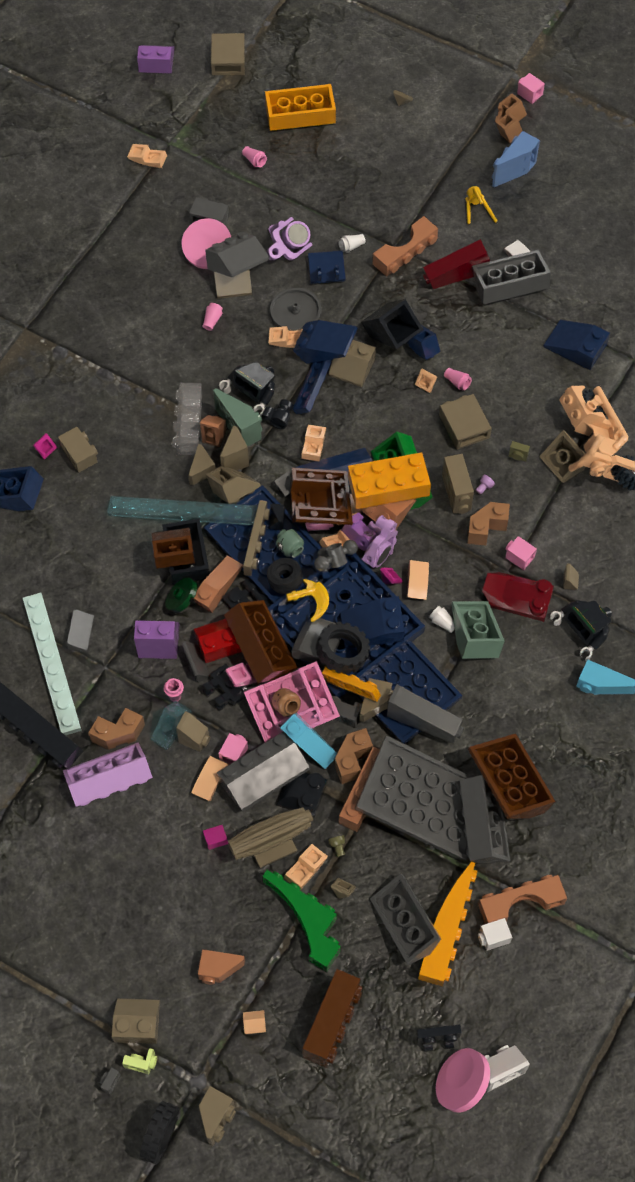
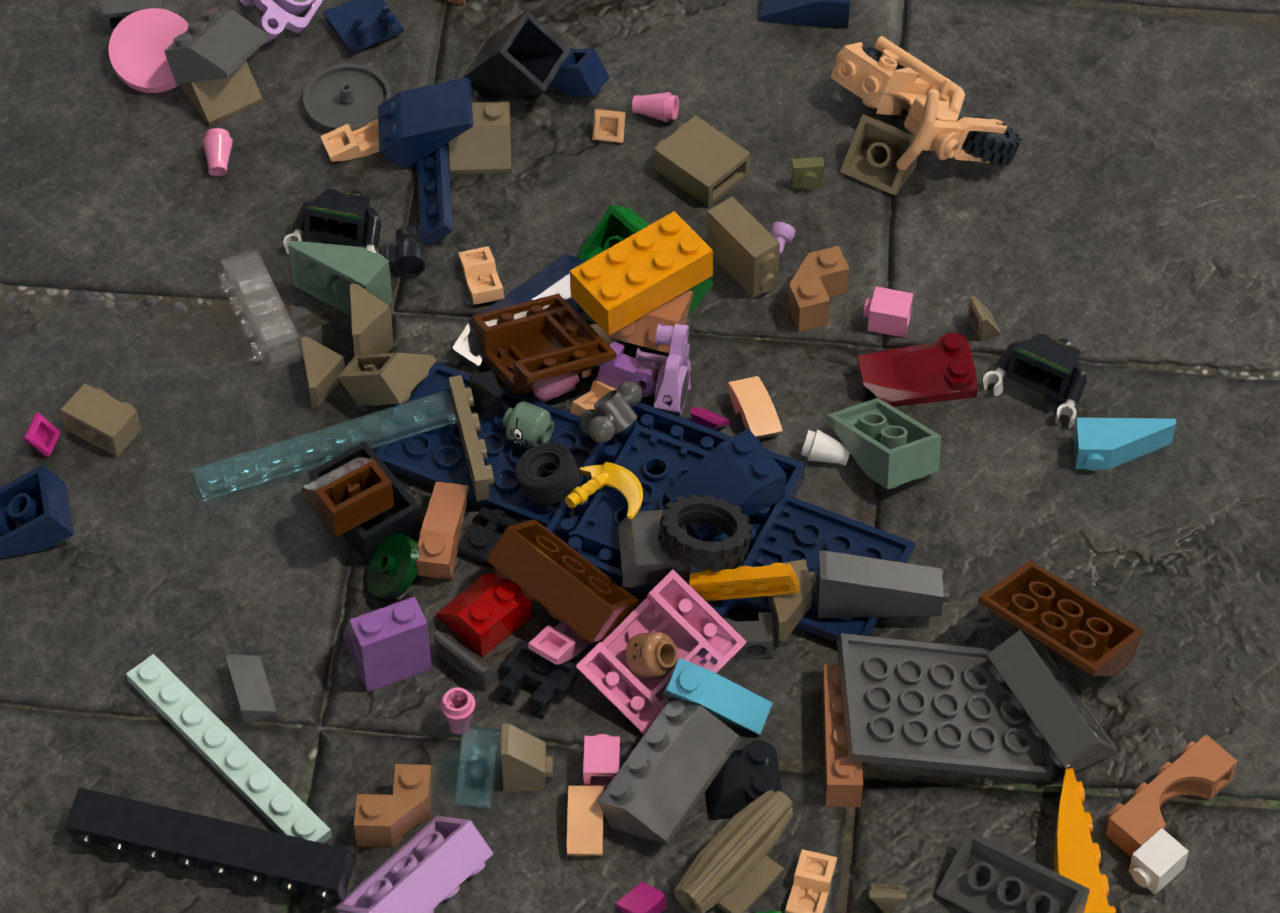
camera: 25 degrees left, 10 degrees down
(213, 430) = (312, 312): nougat slope -> none
(338, 843) = (841, 832): olive piece -> none
(354, 747) = (795, 710): medium nougat brick -> none

